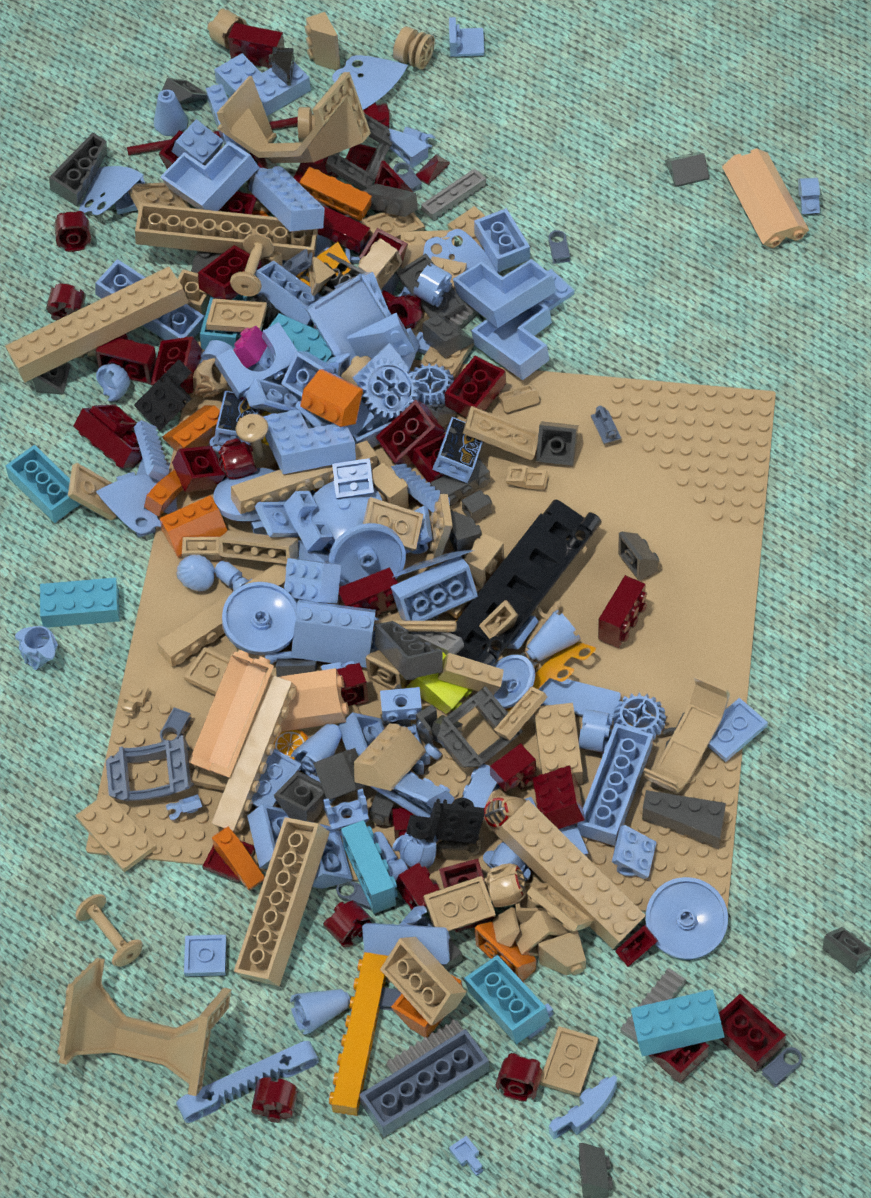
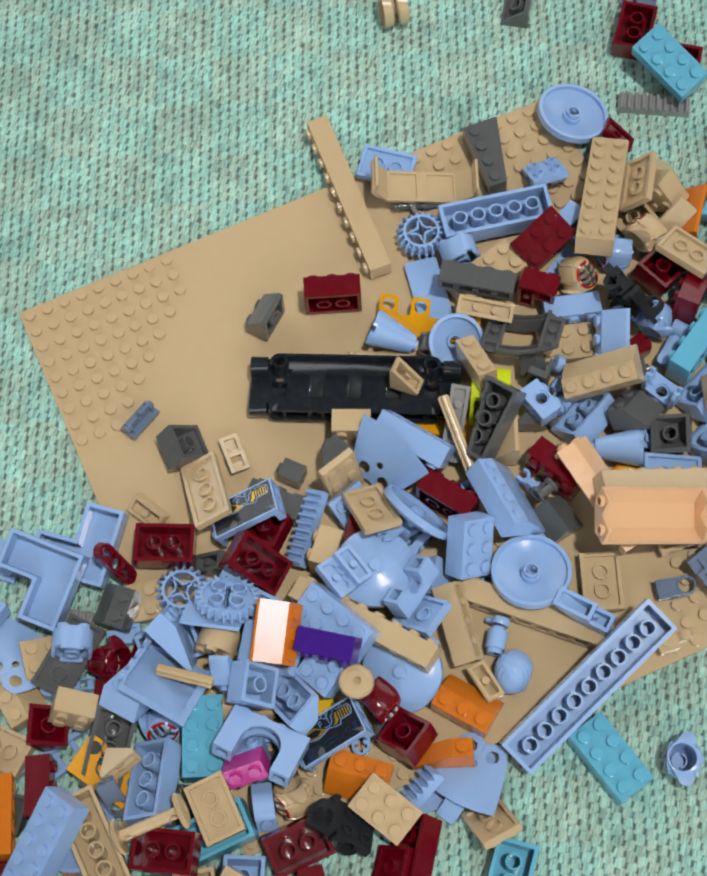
camera: 120 degrees left, 10 degrees up
(140, 606) = (588, 685): none -> light blue brick
(155, 425) = (385, 809): none -> tan plate
(197, 632) = (584, 611): none -> light blue slope
(294, 422) = (327, 645): none -> dark purple brick
(321, 664) = (544, 489): none -> dark grey bush
(345, 331) = (185, 676): none -> tan axle
(475, 348) = (107, 562): none -> dark red beam
(549, 715) = (477, 280): none -> dark grey brick
(741, 683) = (349, 198): none -> tan brick

